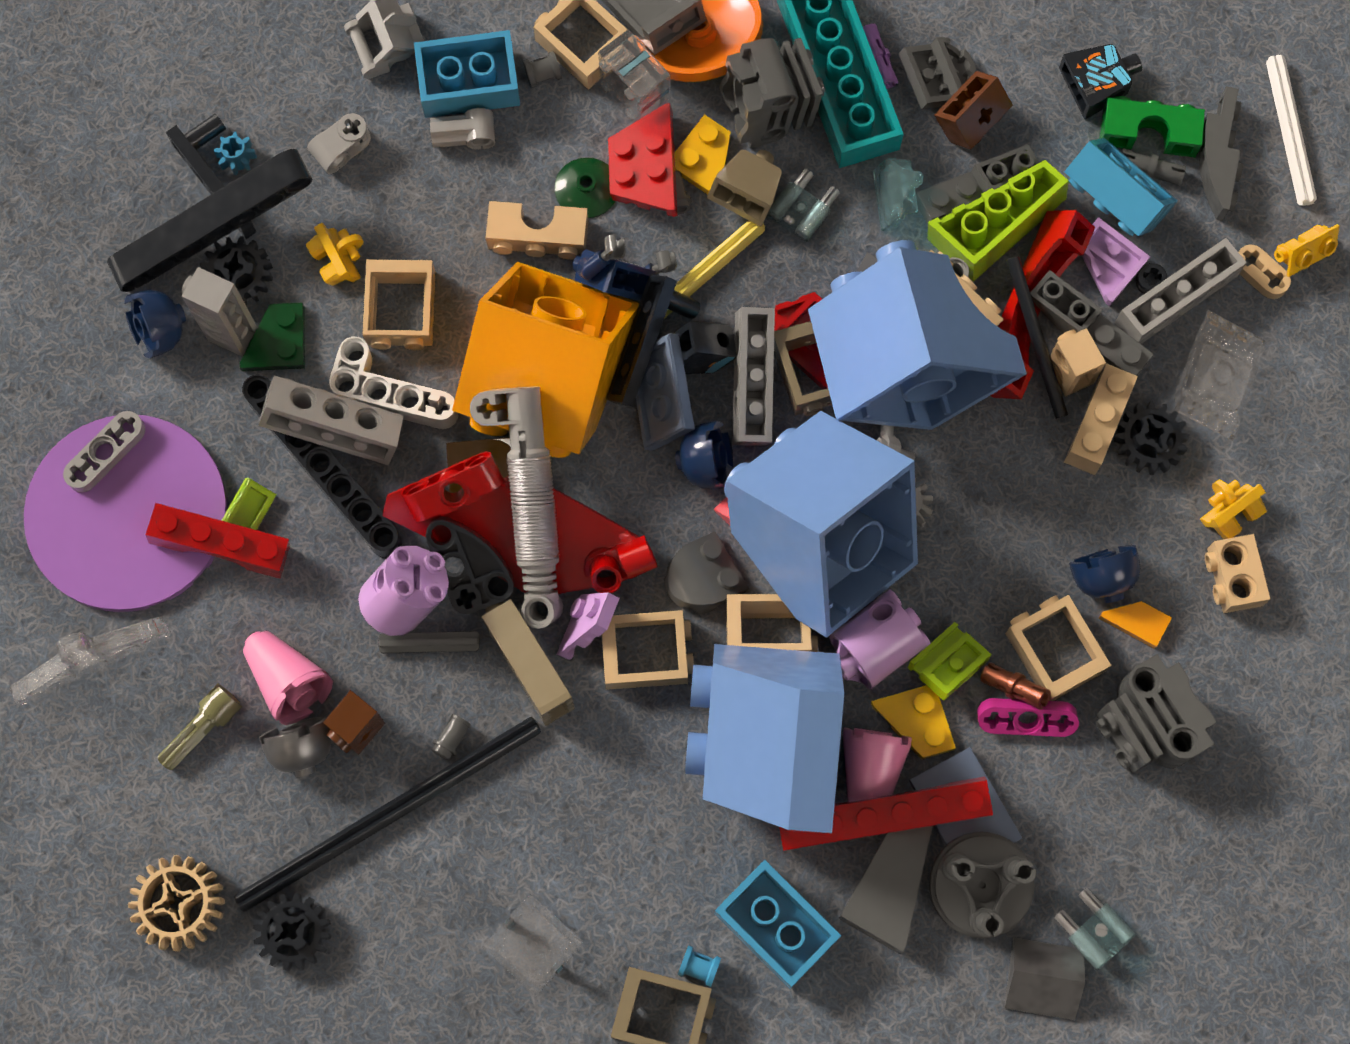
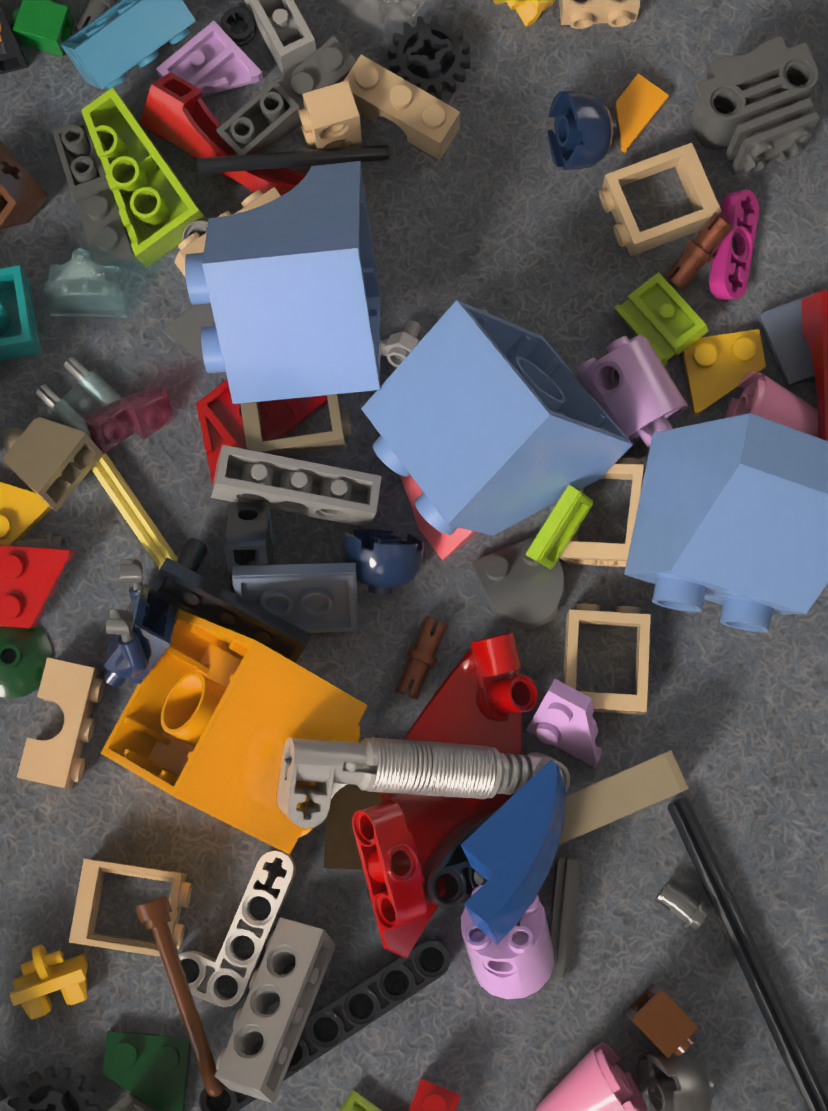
camera: 80 degrees left, 5 degrees up
(392, 318) = (156, 915): none -> reddish brown piece
(474, 581) = (516, 852): none -> blue slope
(628, 502) = (421, 658): none -> copper pin
(748, 589) = (560, 527): none -> lime tile
(798, 247) = (134, 414): none -> clear pink slope

